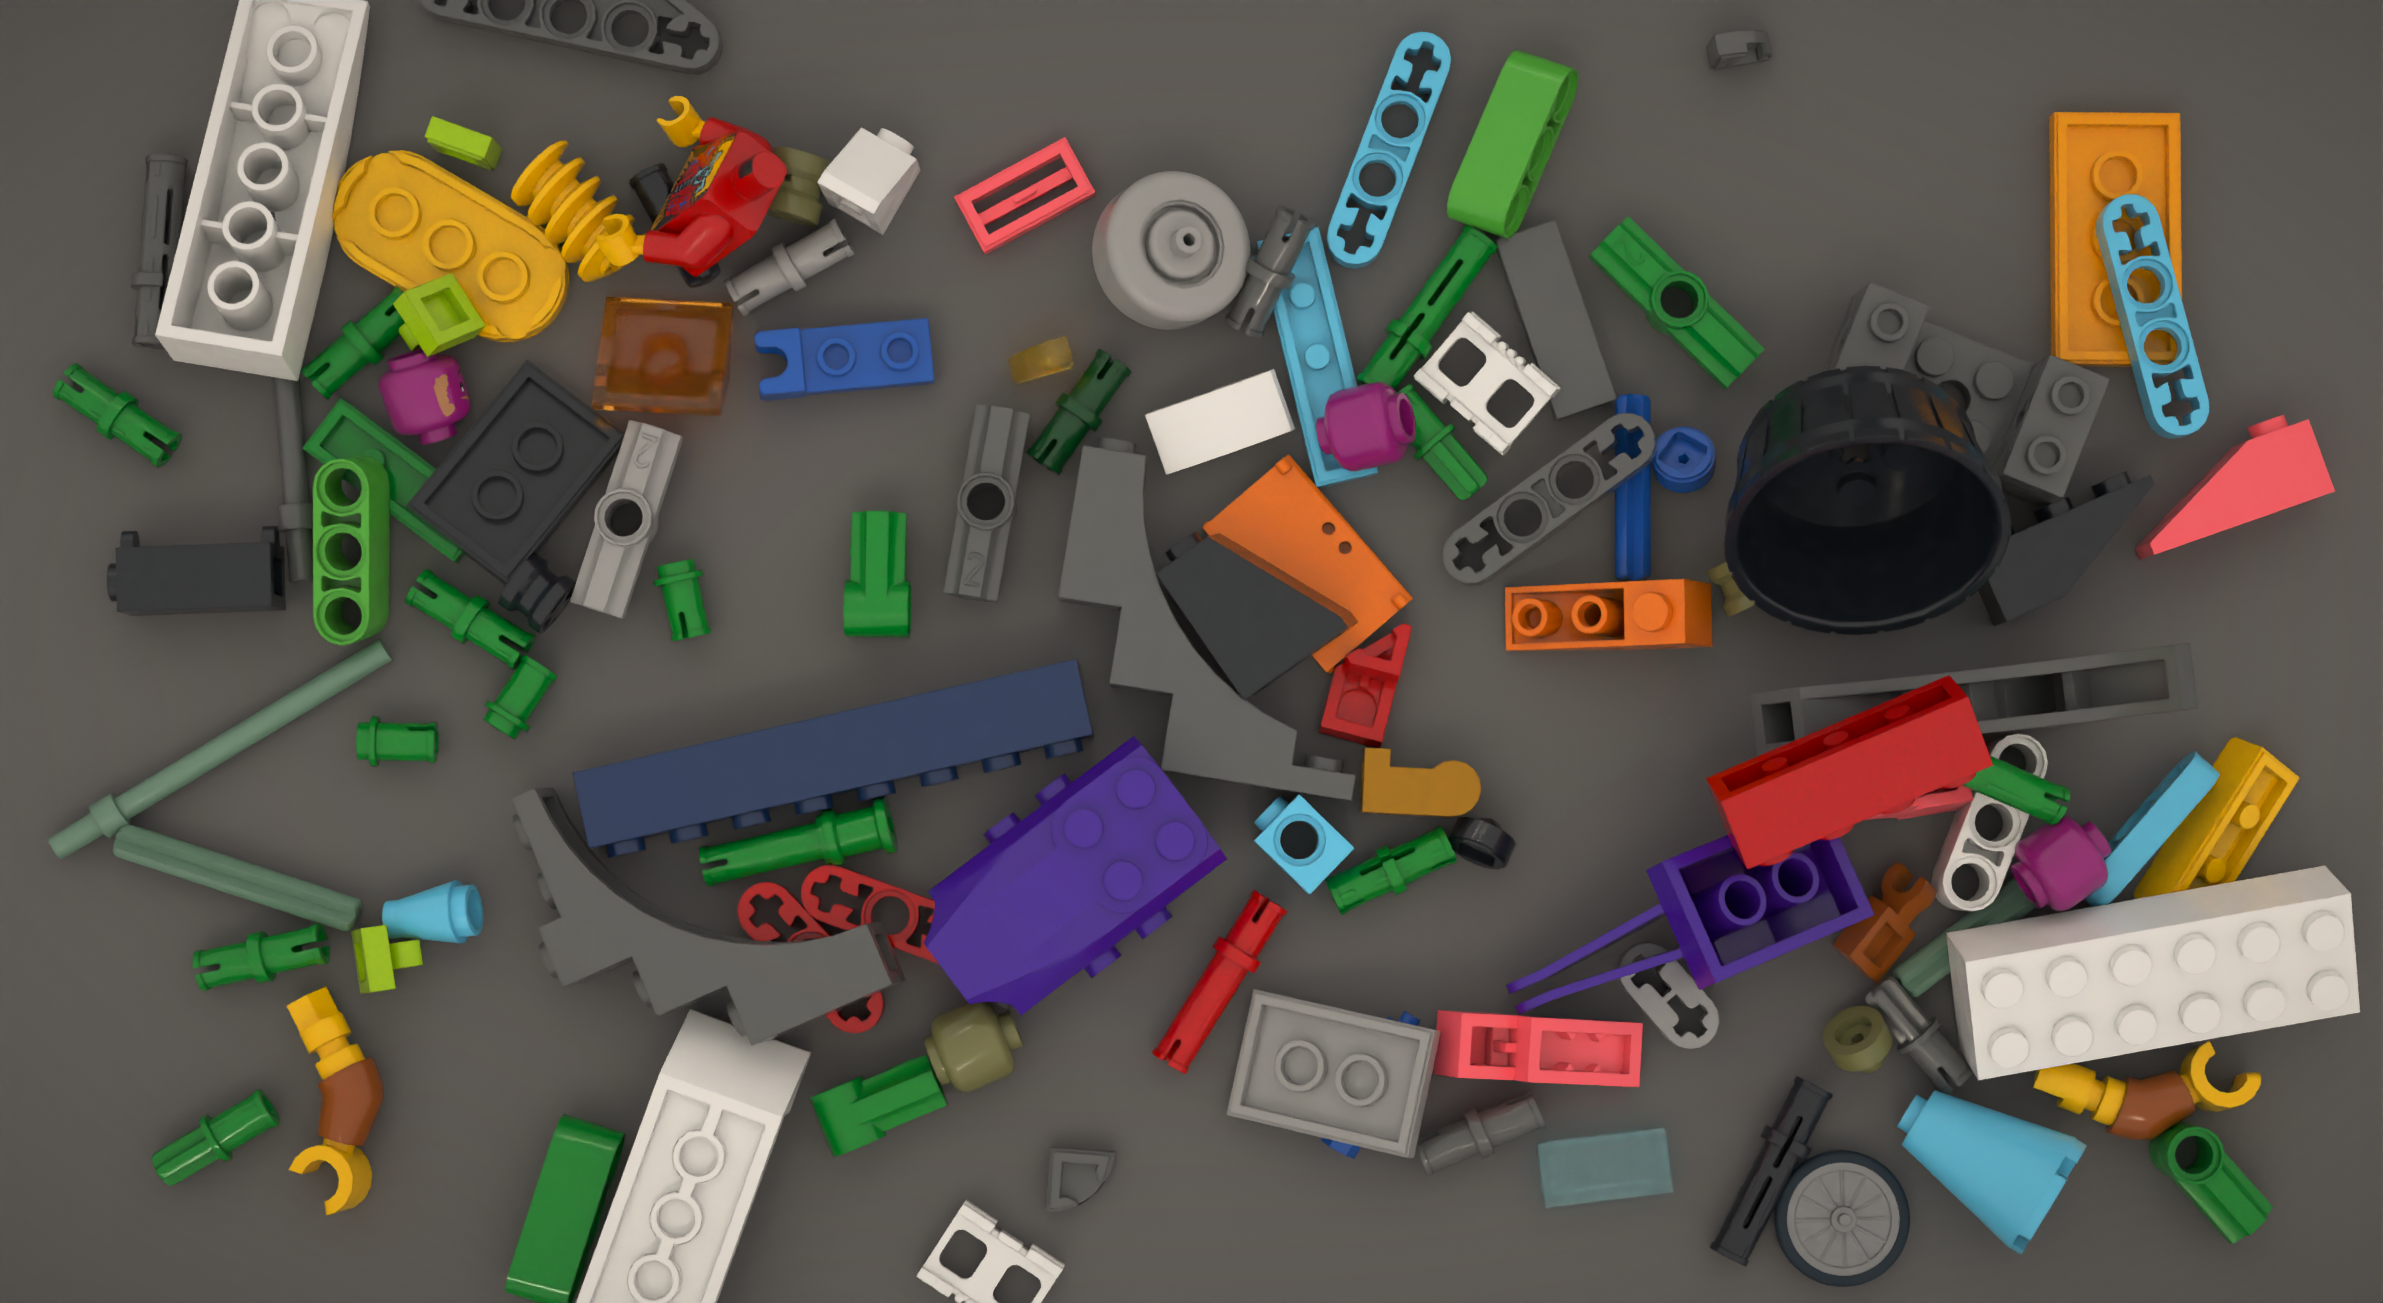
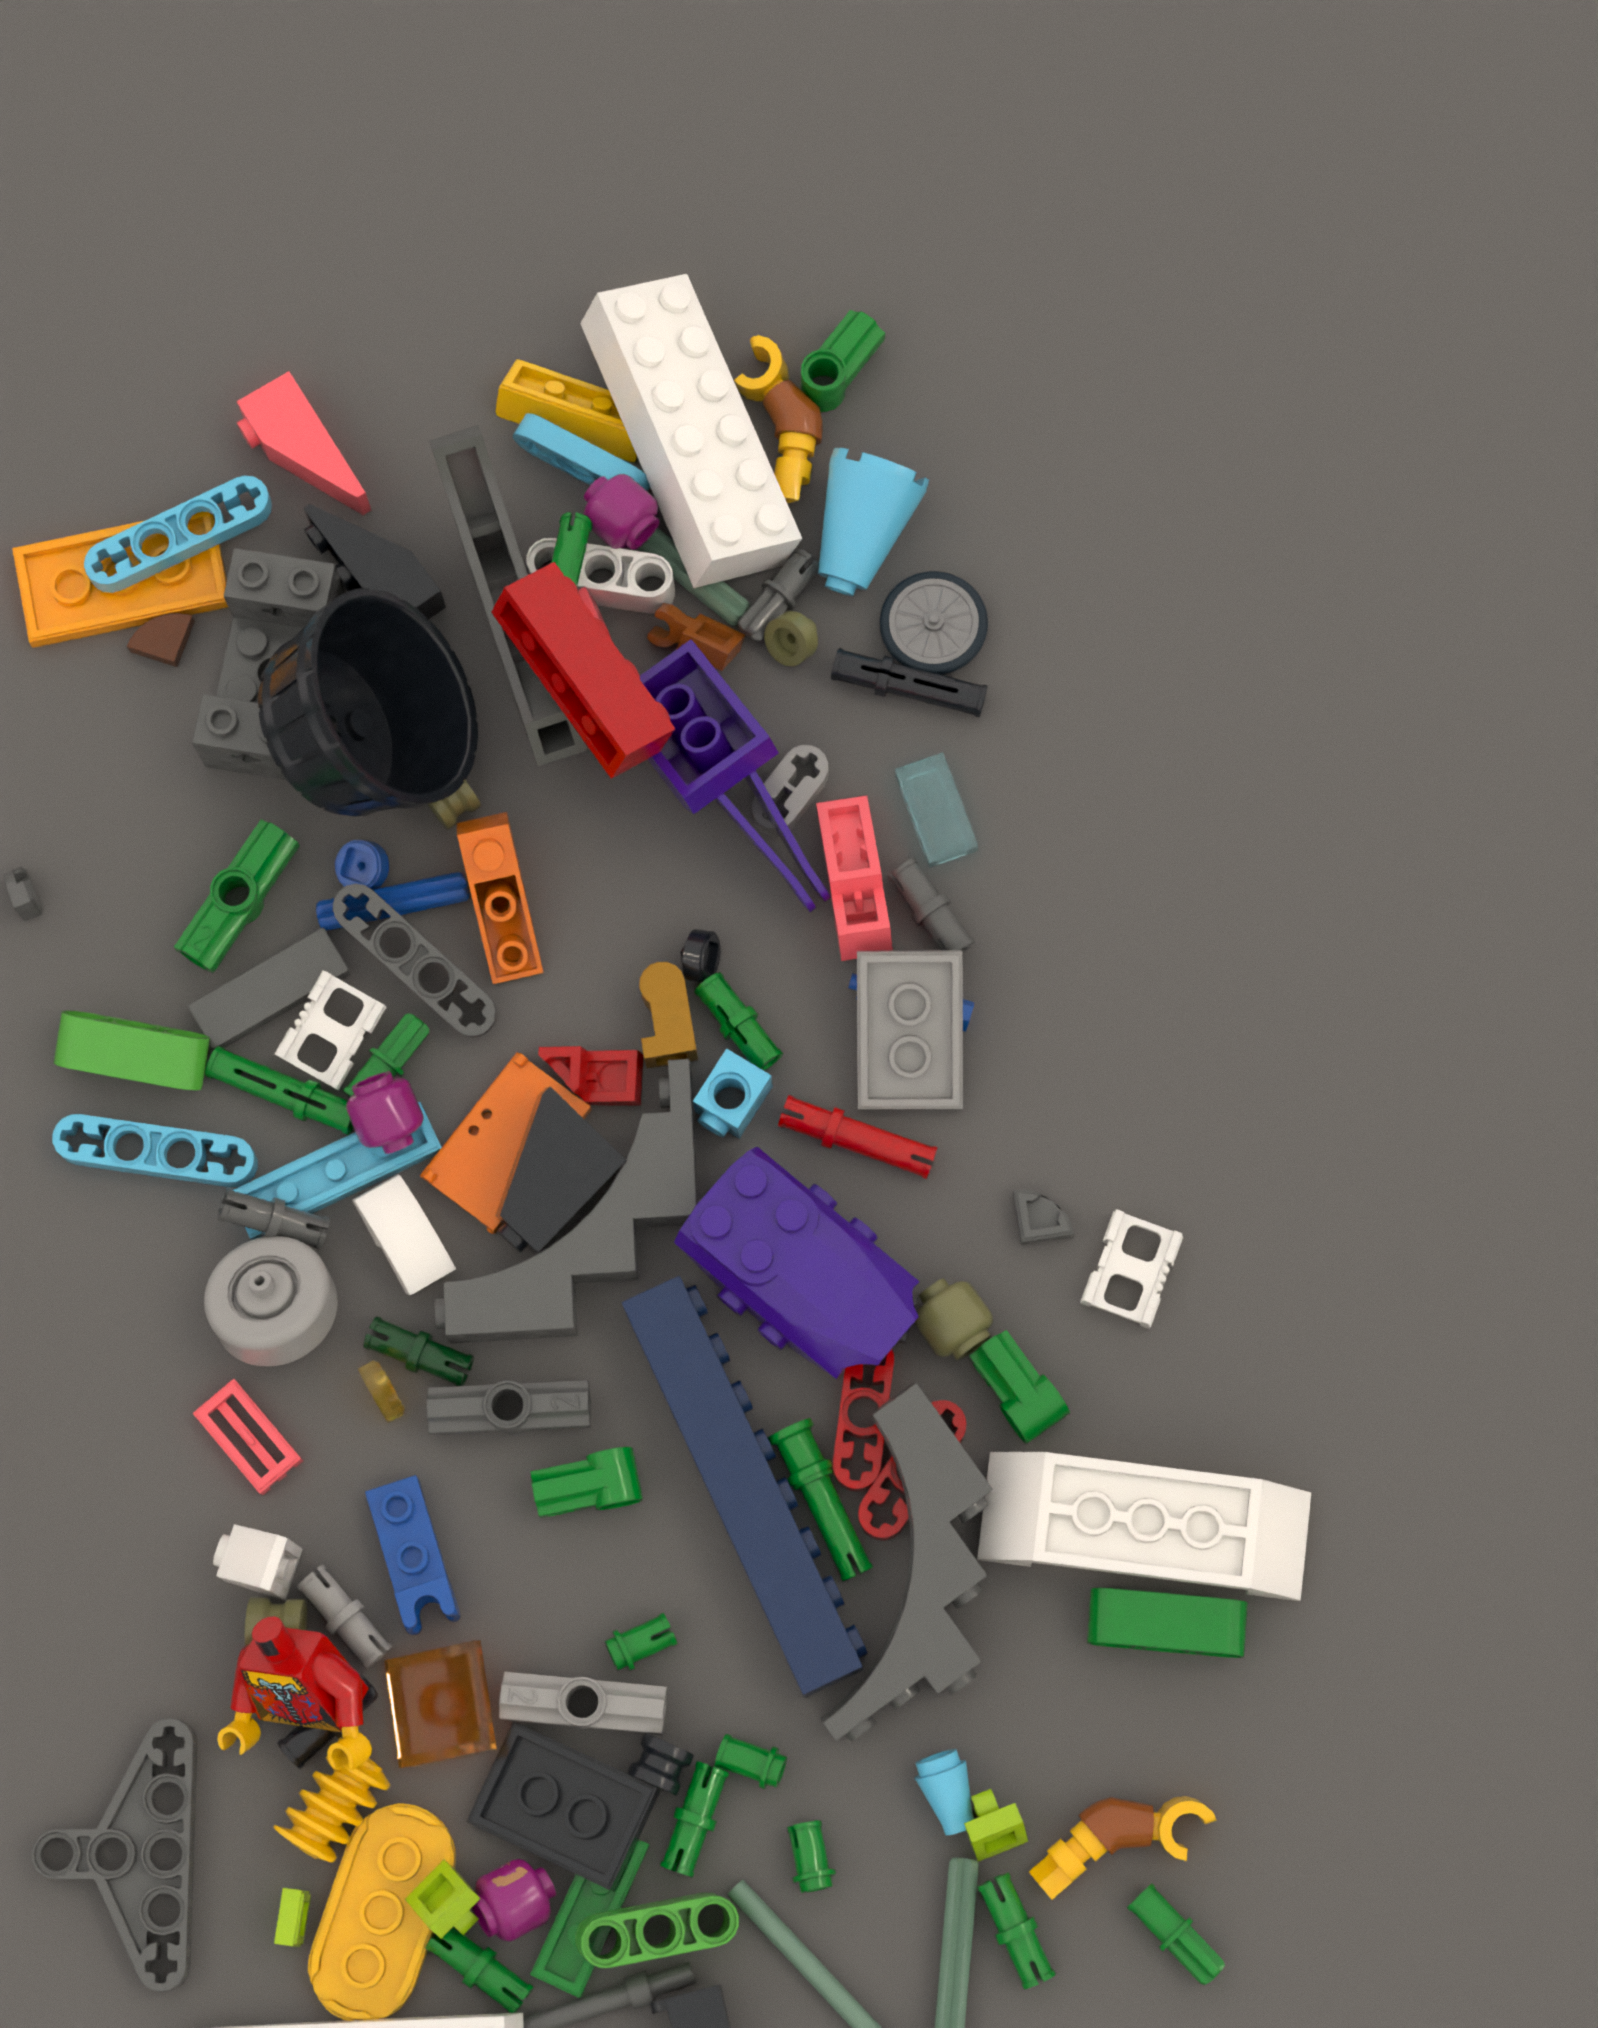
camera: 95 degrees left, 10 degrees down
(2025, 275) = (163, 638): none -> reddish brown tile

